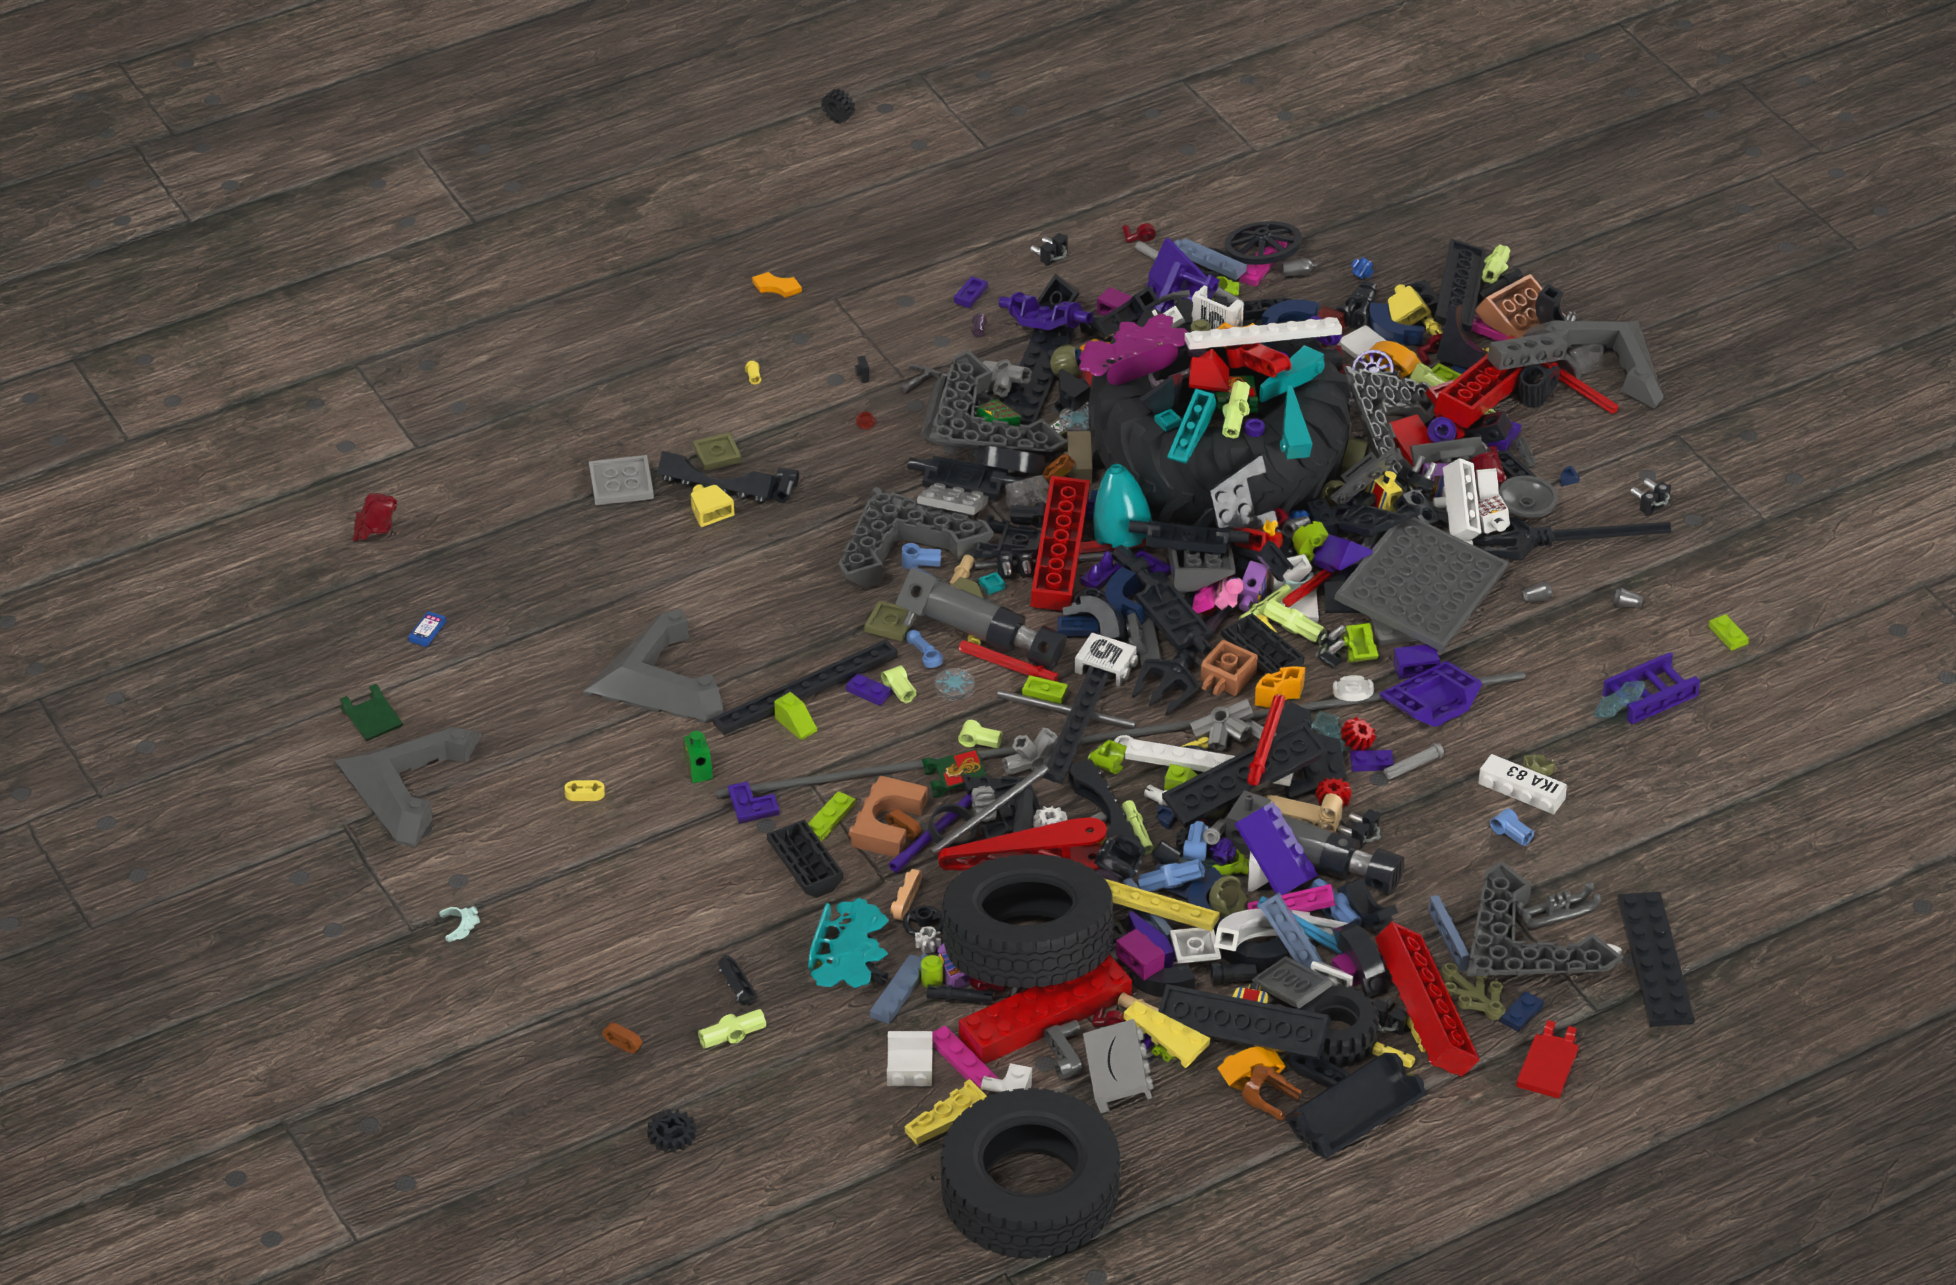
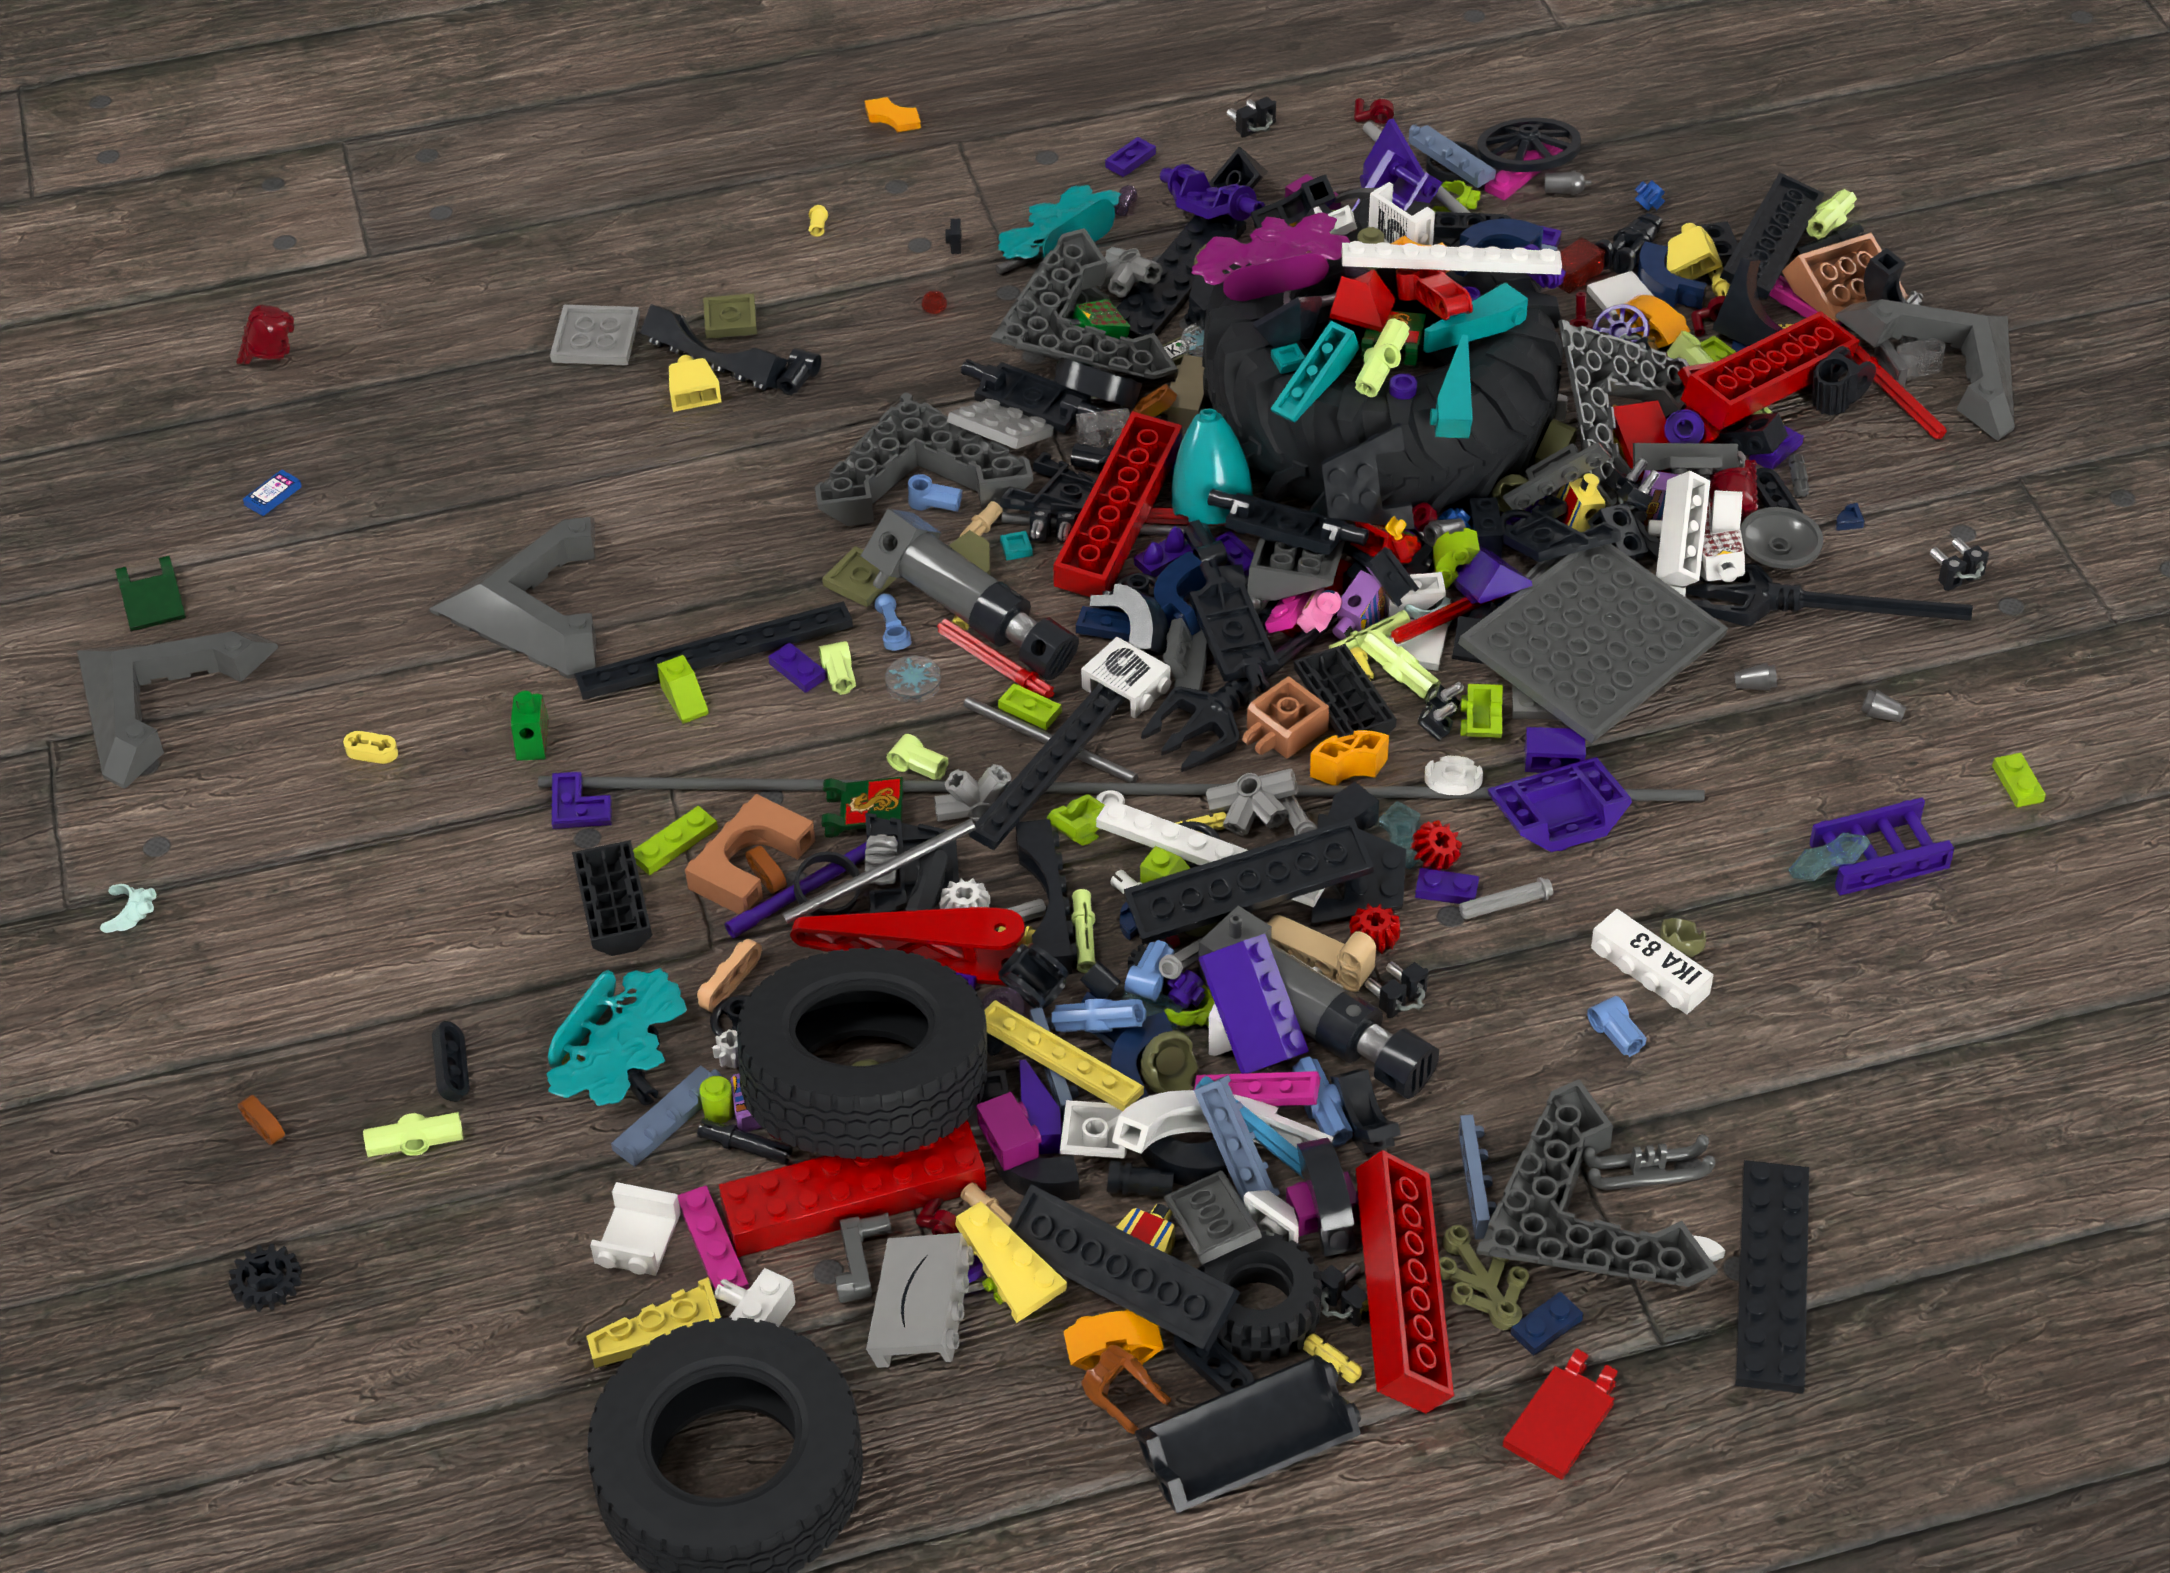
camera: 15 degrees right, 5 degrees up
(938, 342) = (1075, 211): none -> teal plant
(1257, 766) = (1265, 874): red axle -> none
(1527, 350) = (1833, 335): dark grey brick -> none

